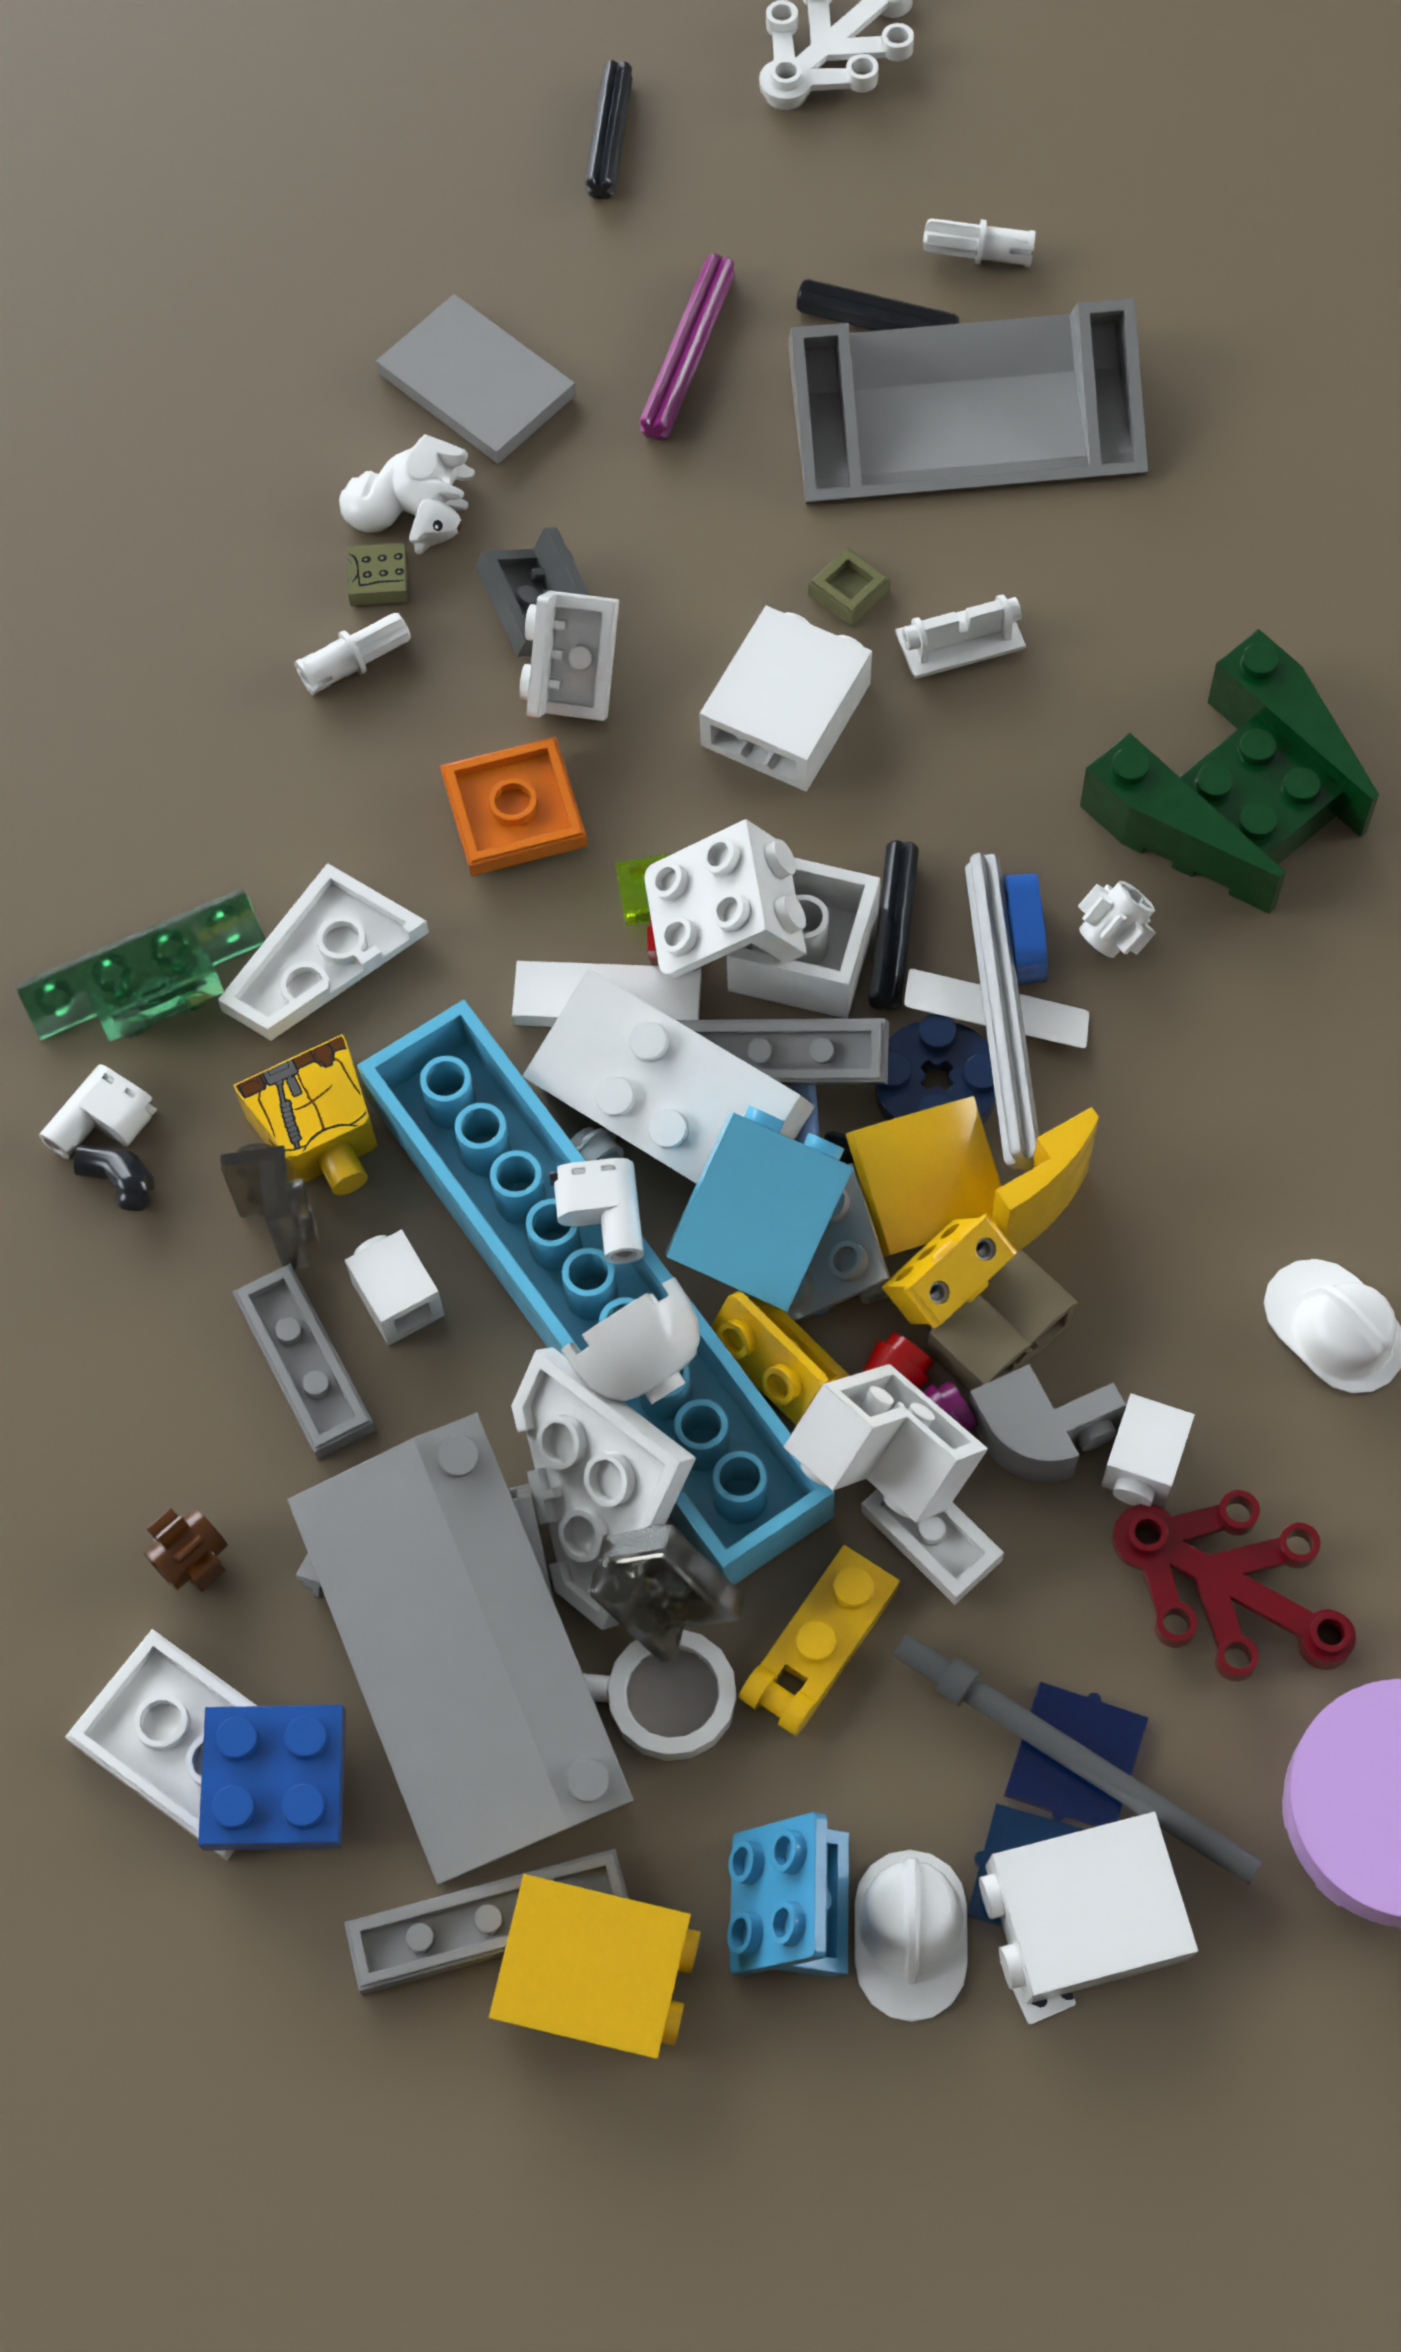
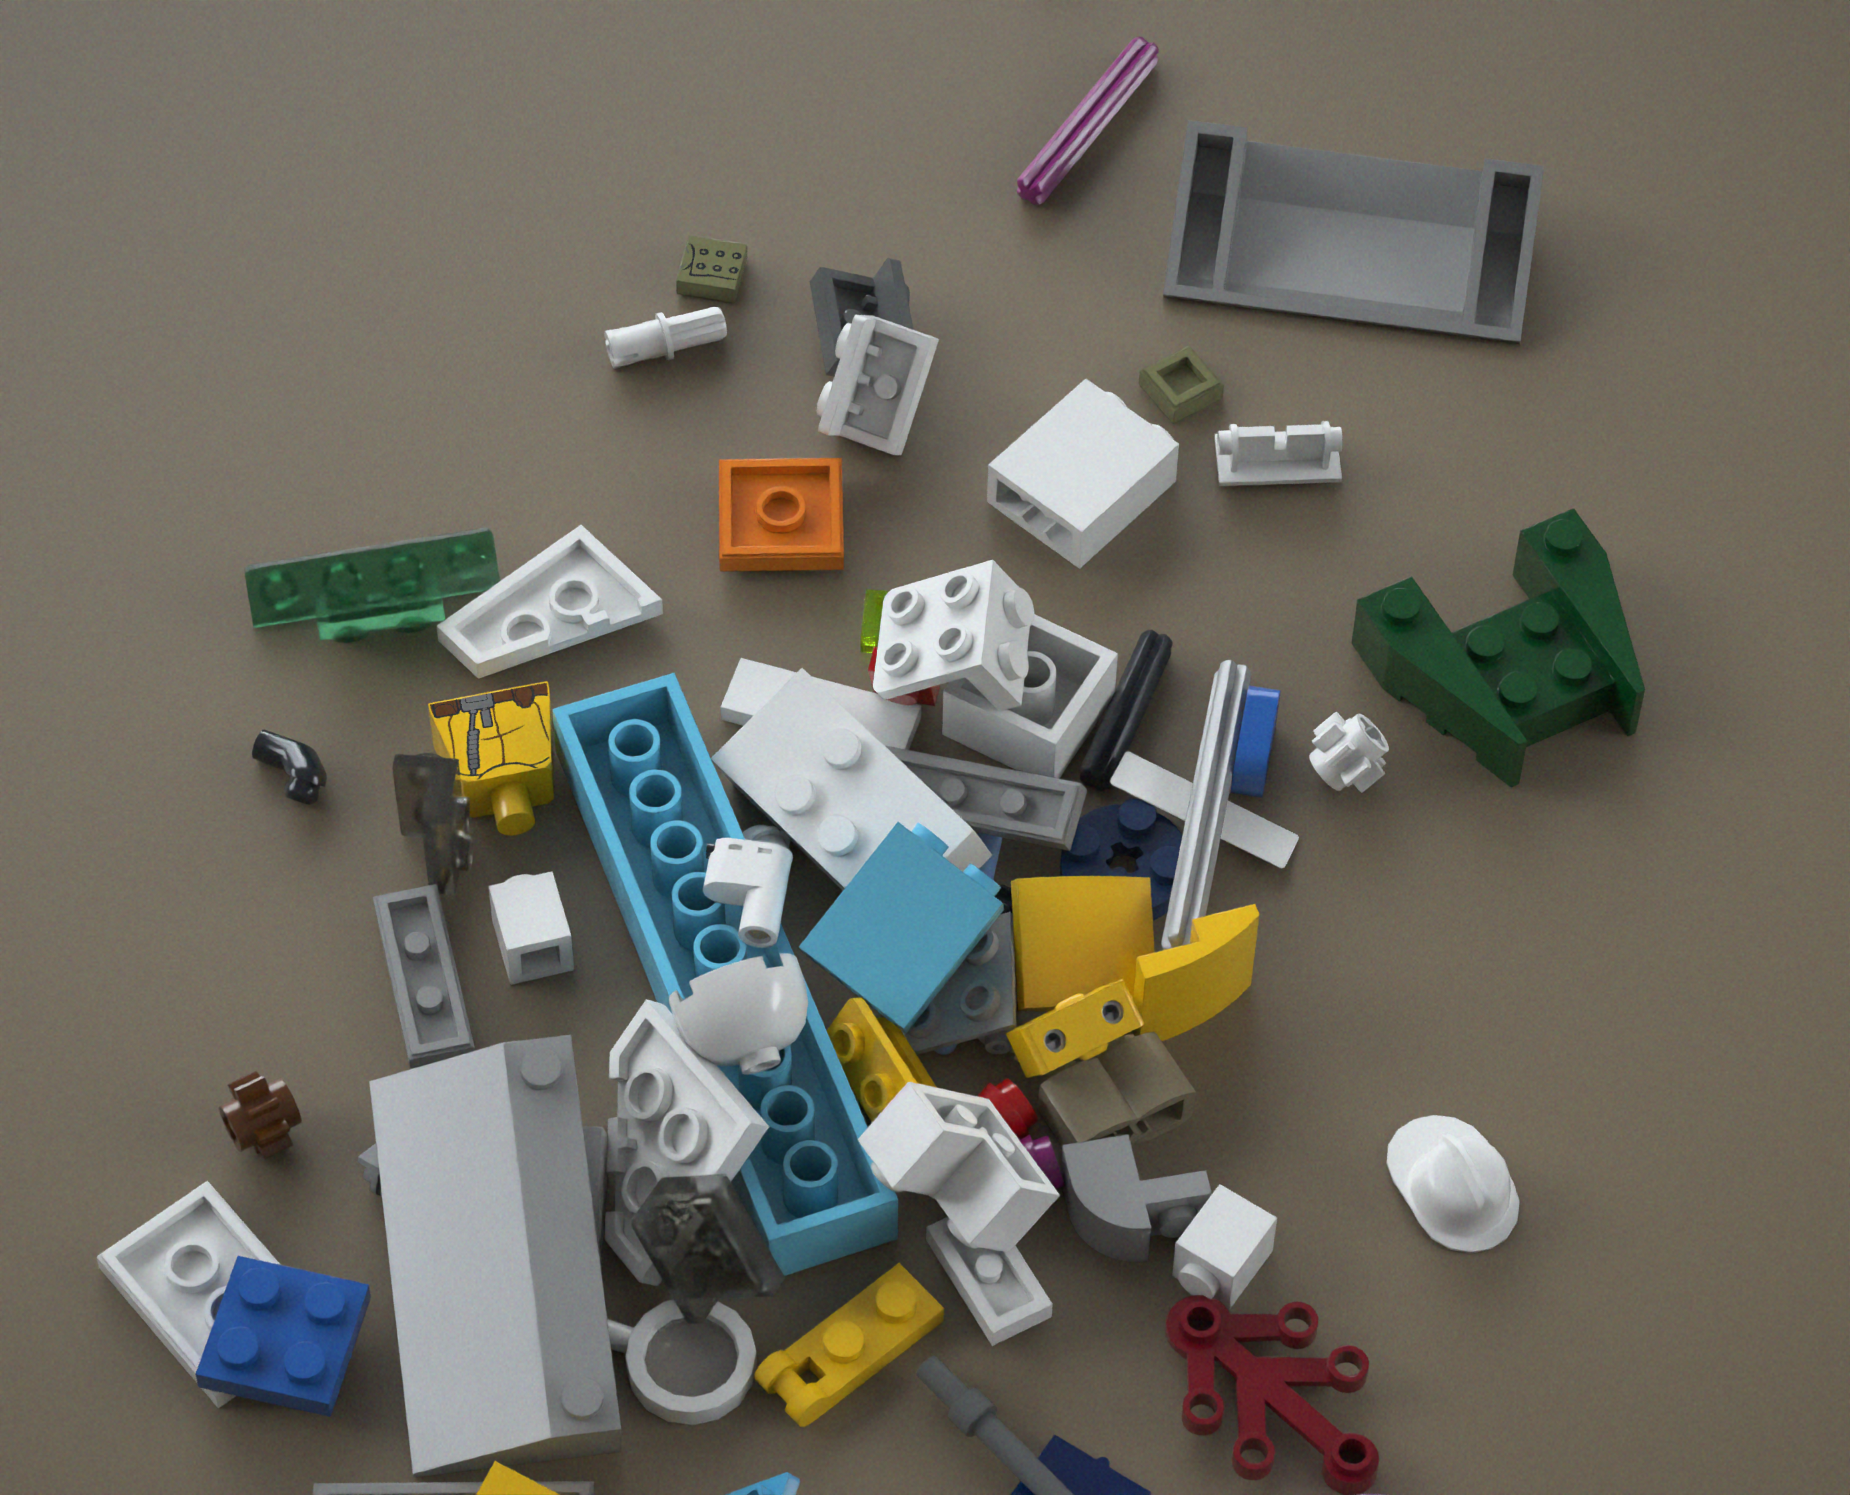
camera: 10 degrees right, 10 degrees down
(102, 1103) = (297, 697): white piece -> none
(416, 483) = (774, 190): white animal -> none
(476, 378) = (865, 105): light grey tile -> none
(865, 308) = (1278, 122): black axle -> none
(979, 242) = (1415, 83): white axle -> none

